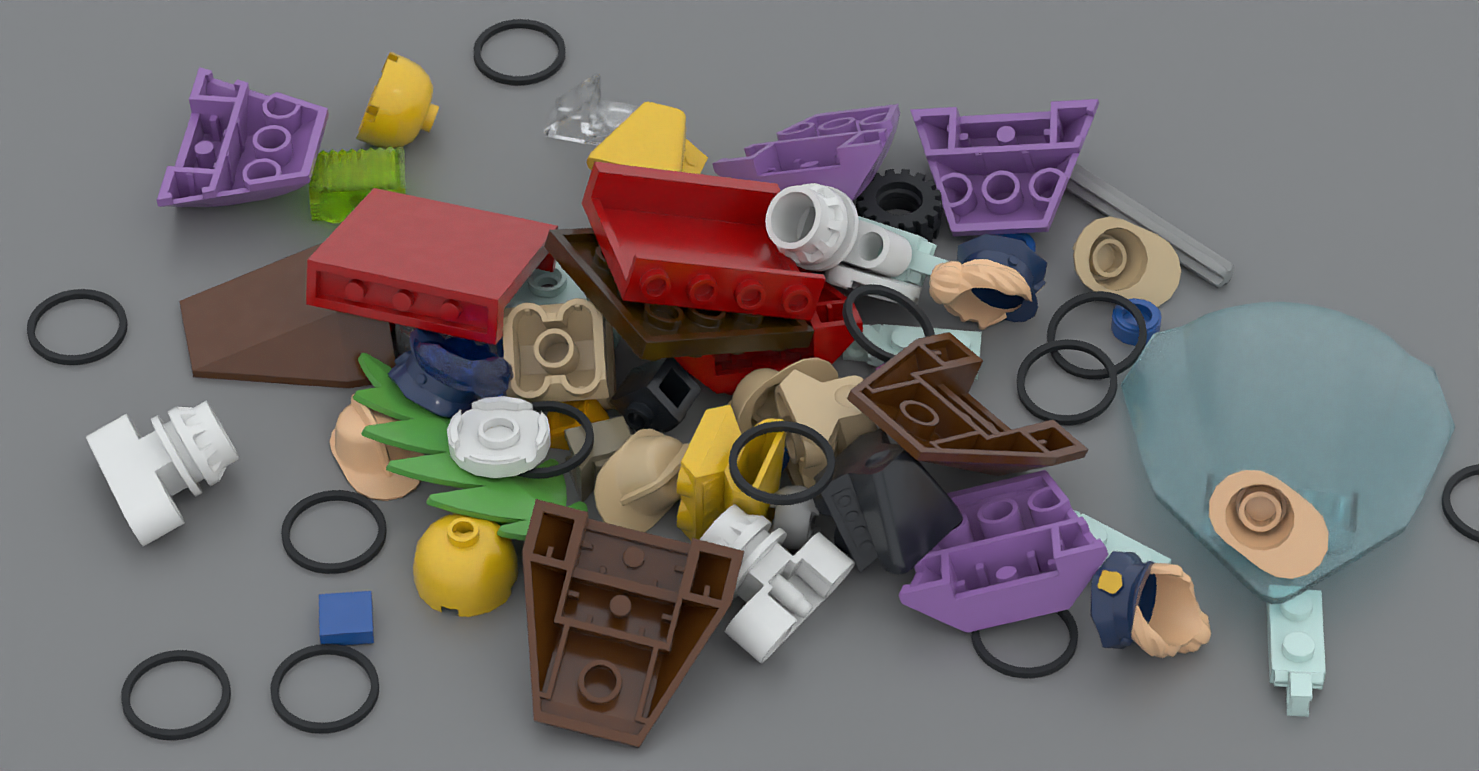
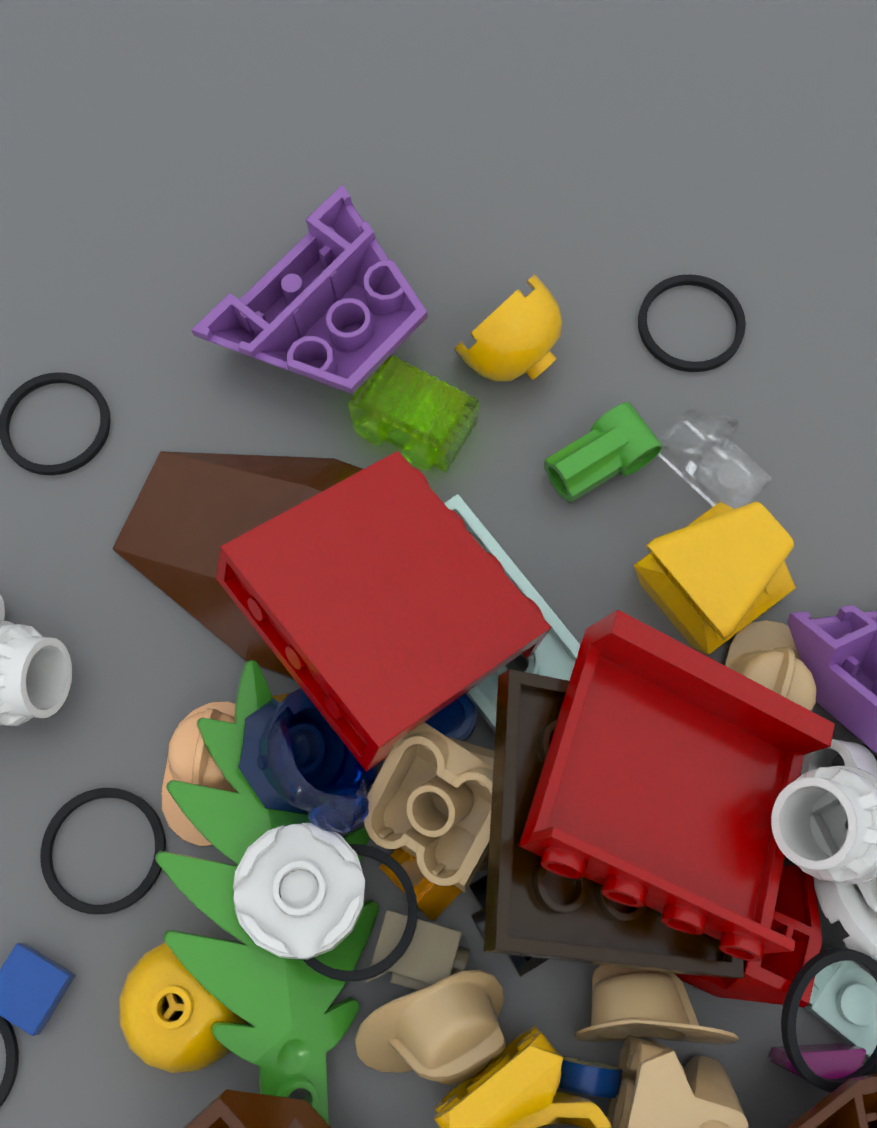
camera: 35 degrees right, 25 degrees up
(518, 140) = (614, 445): none -> bright green piece

